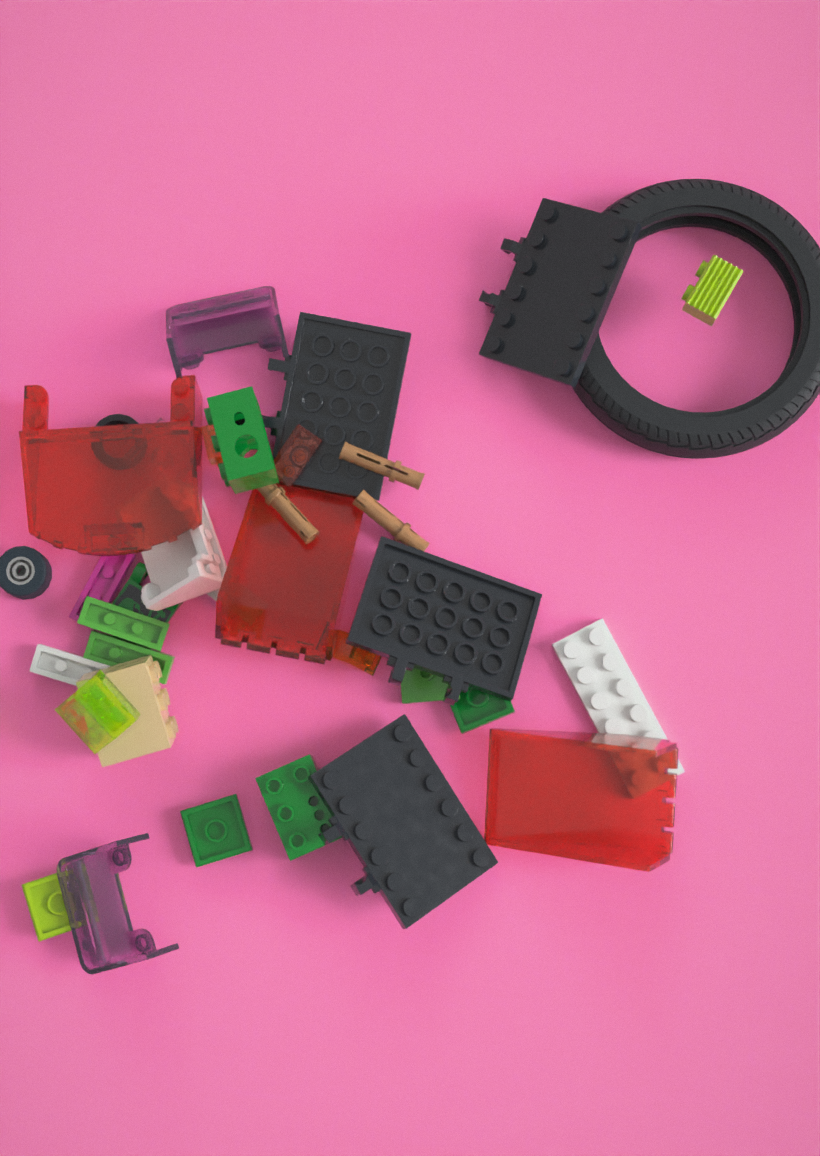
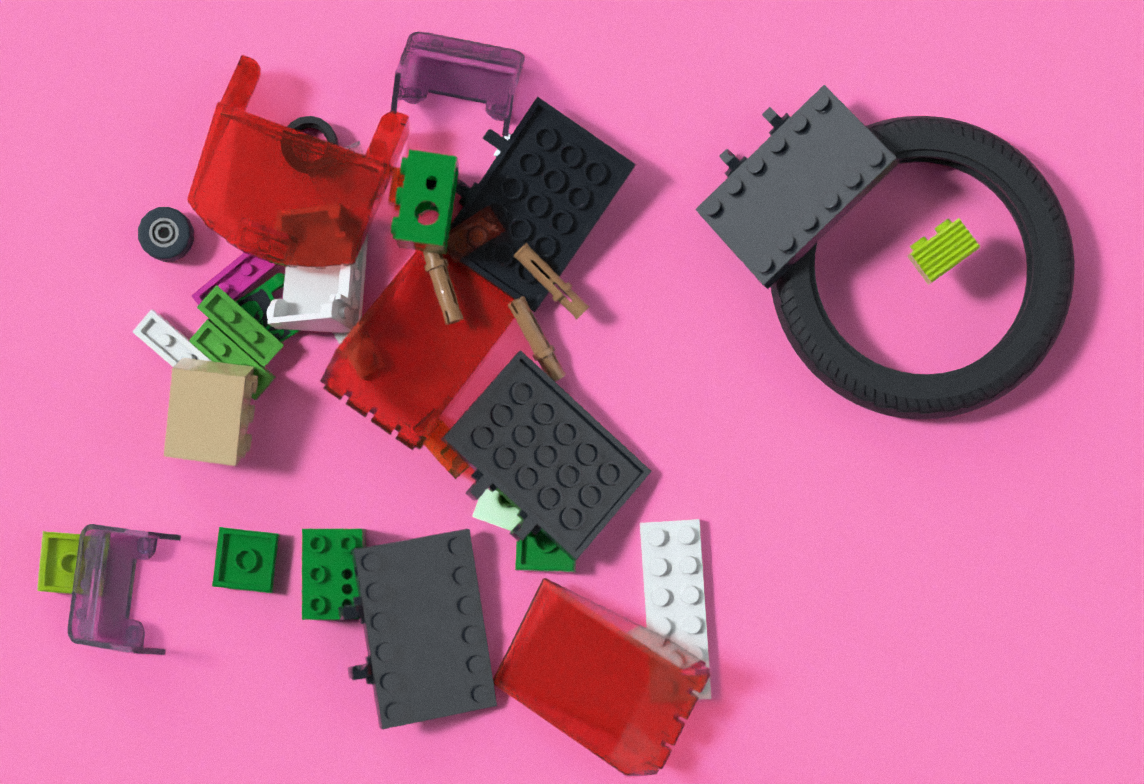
camera: 25 degrees right, 5 degrees up
(98, 712) = (181, 405): clear neon green slope -> none

